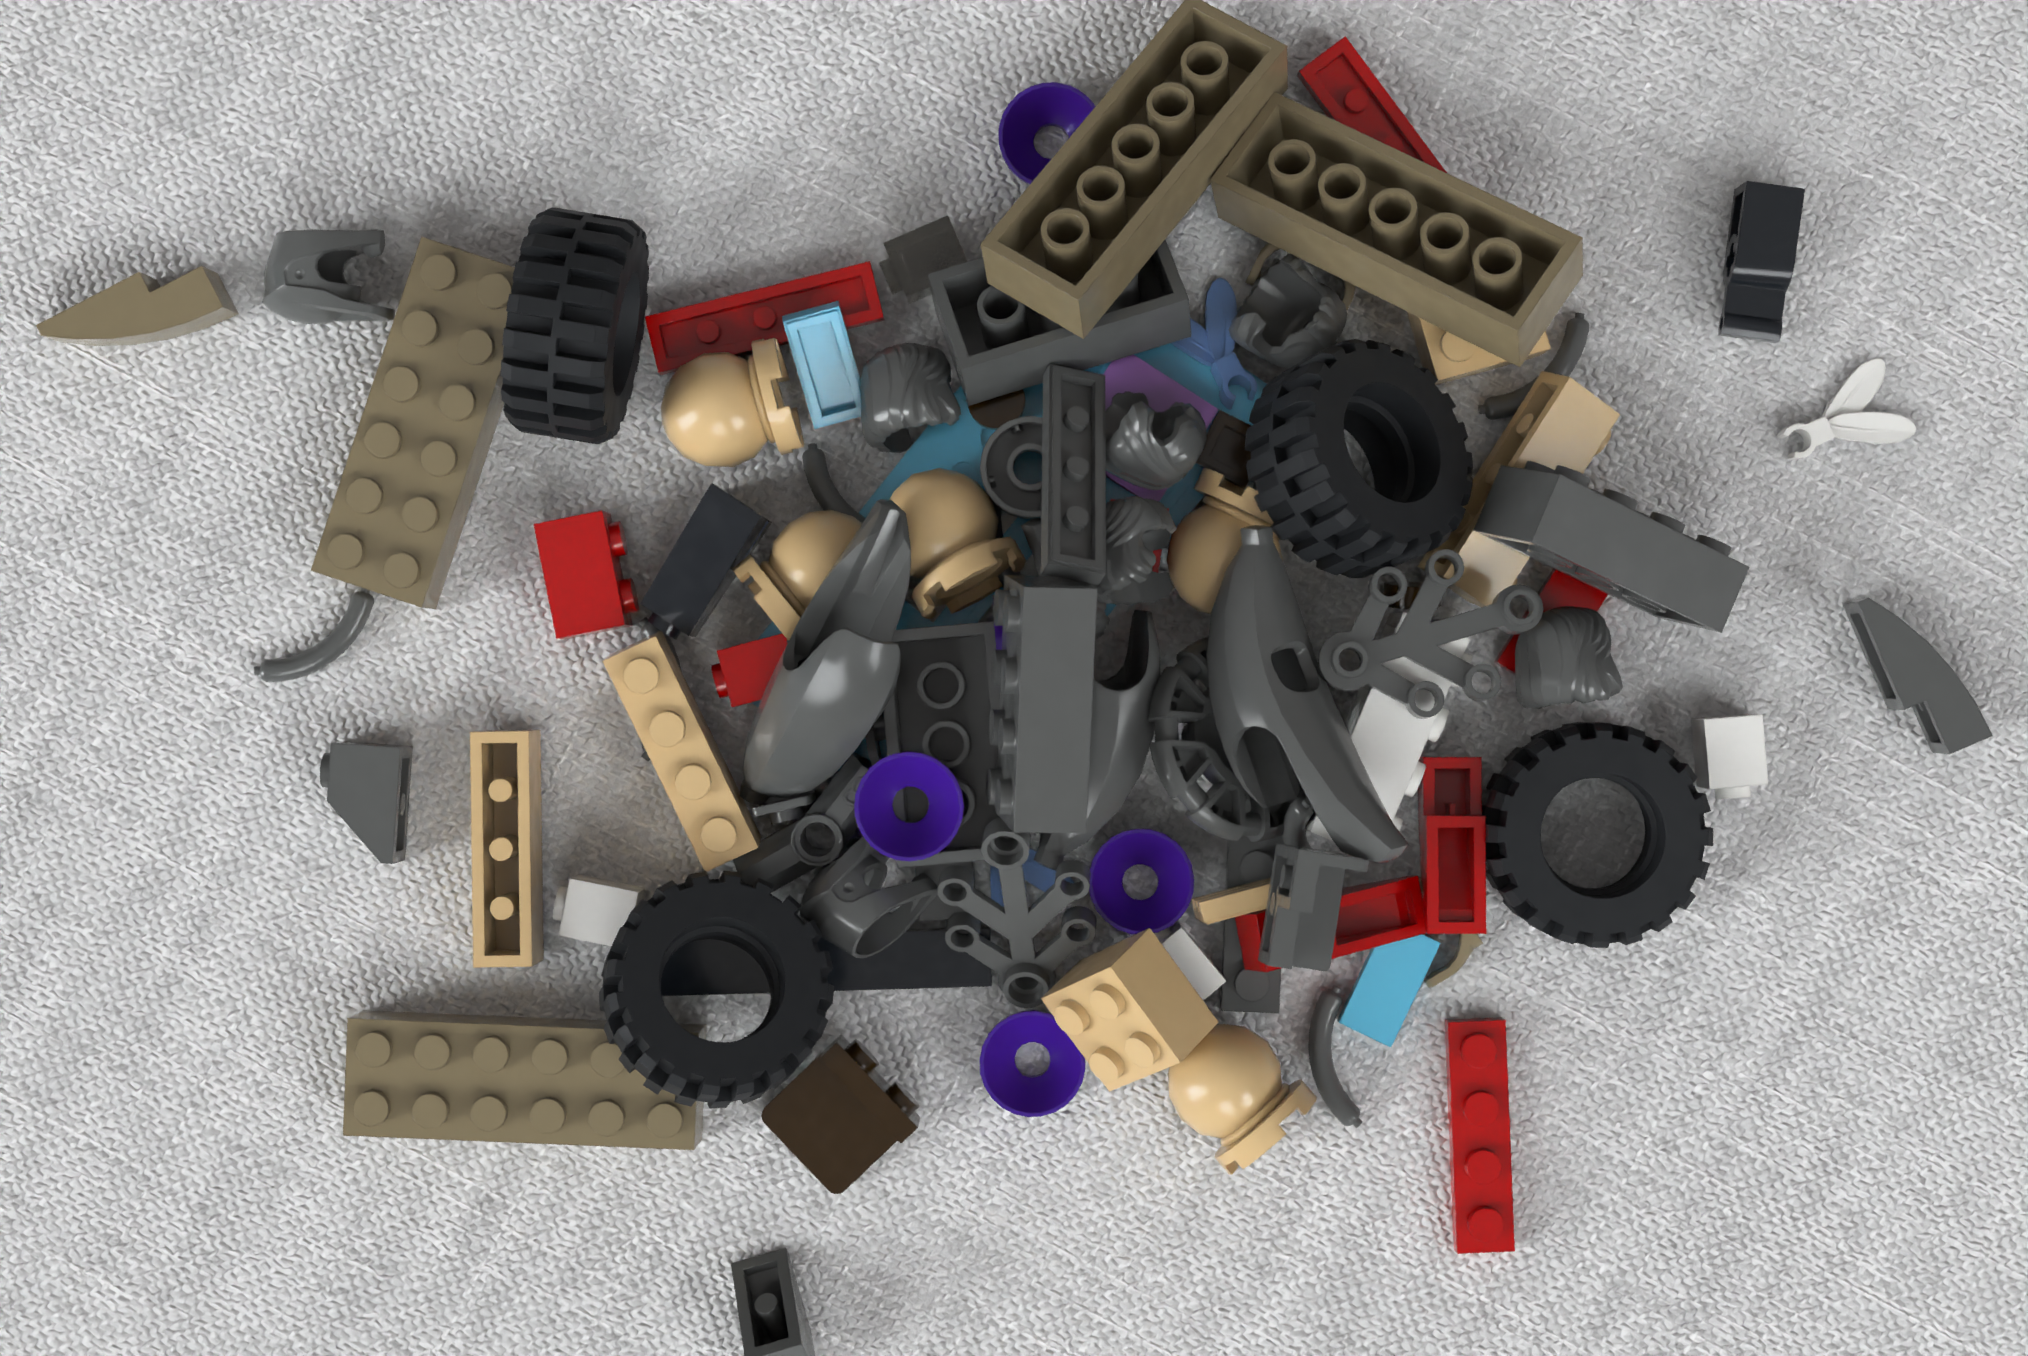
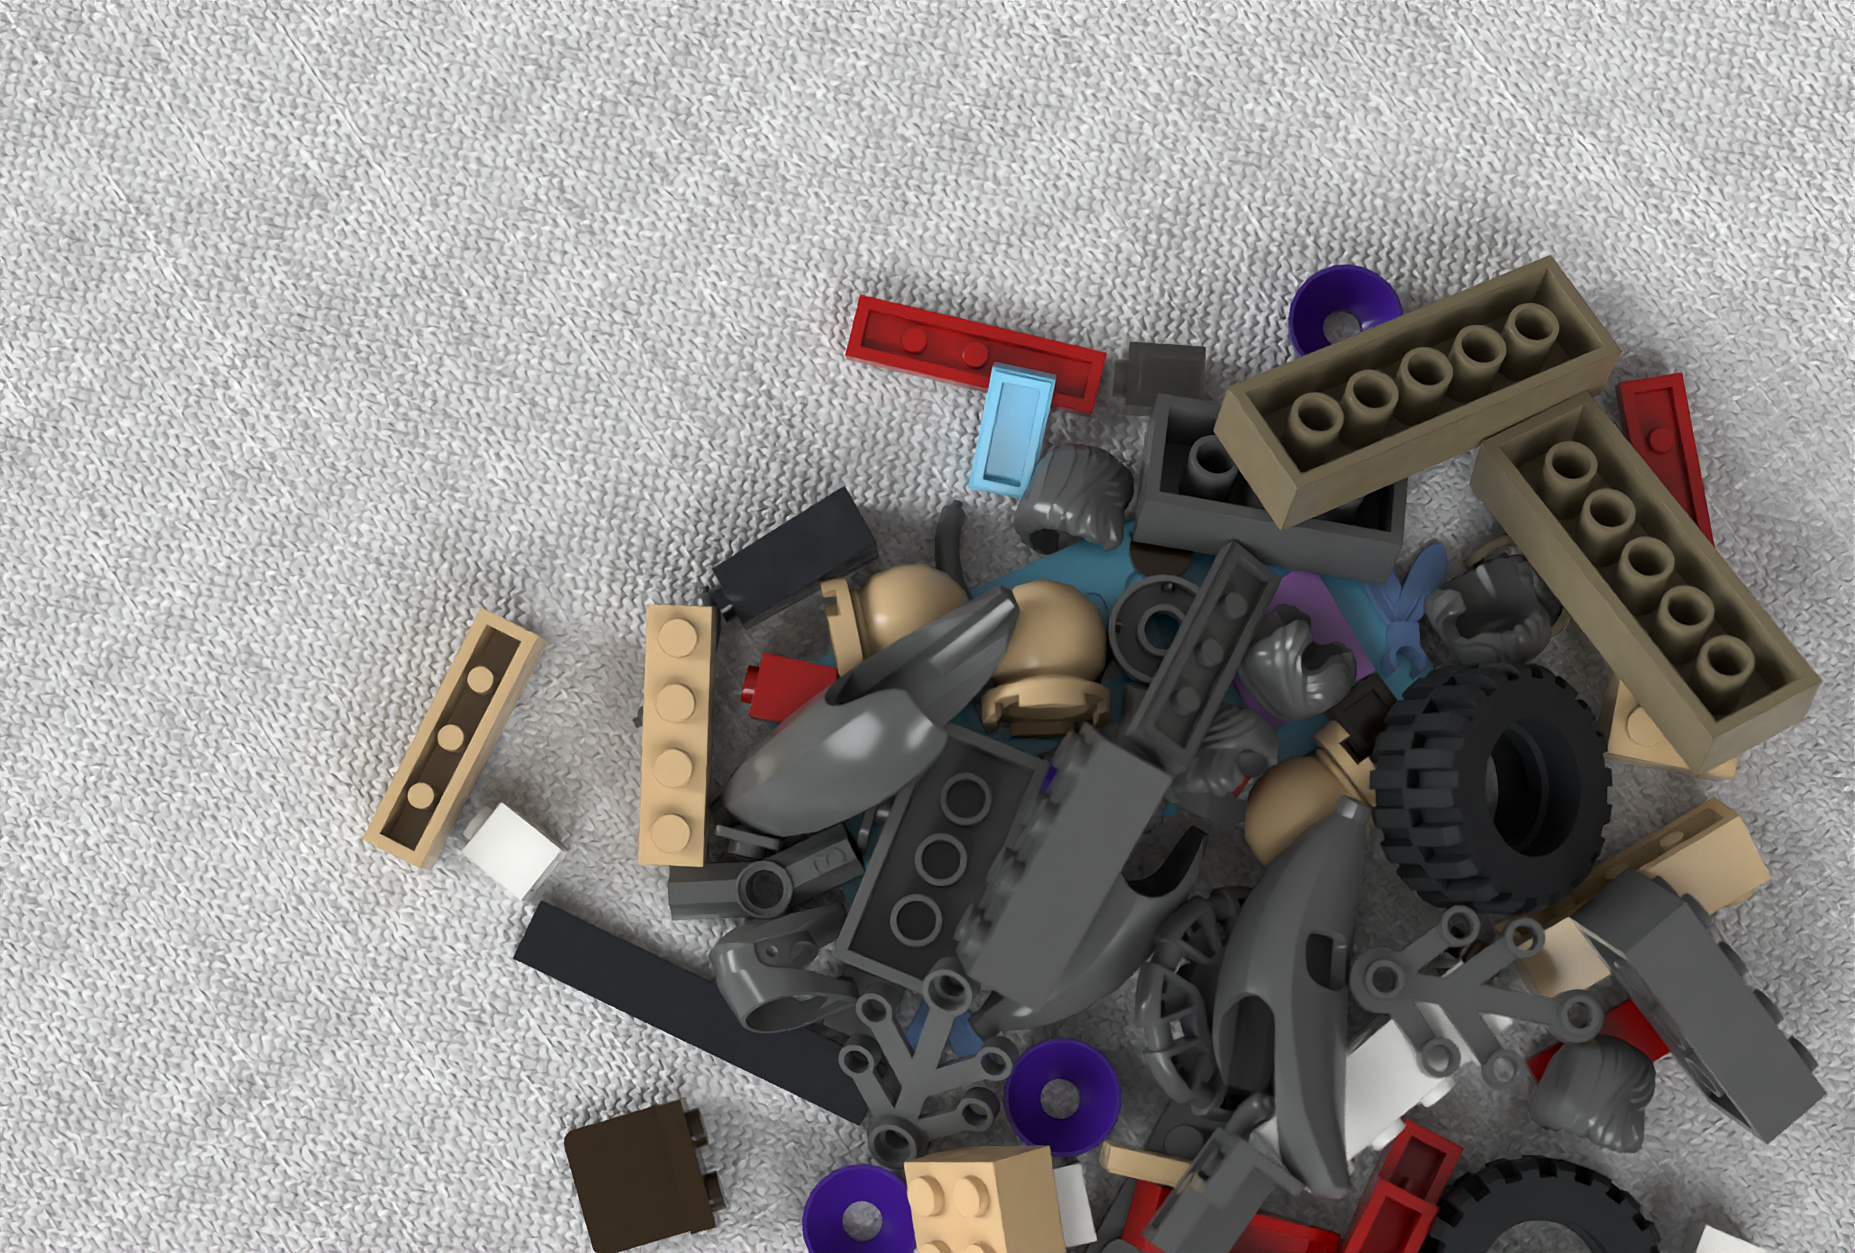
camera: 30 degrees right, 5 degrees down
(143, 311) = (378, 44): dark tan slope -> none
(308, 281) = (553, 95): dark grey helmet -> none
(327, 650) = (380, 458): dark grey piece -> none
(371, 793) = (350, 618): dark grey slope -> none
(422, 430) = (596, 290): dark tan brick -> none
(504, 1083) = (351, 979): dark tan brick -> none
(574, 325) = (791, 267): black tyre -> none
(586, 574) = (672, 513): red brick -> none
(729, 407) = (896, 423): tan tile -> none
(765, 930) = (655, 933): black tyre -> none
(885, 829) = (838, 892): dark purple piece -> none
(1562, 364) = (1740, 799): dark grey piece -> none

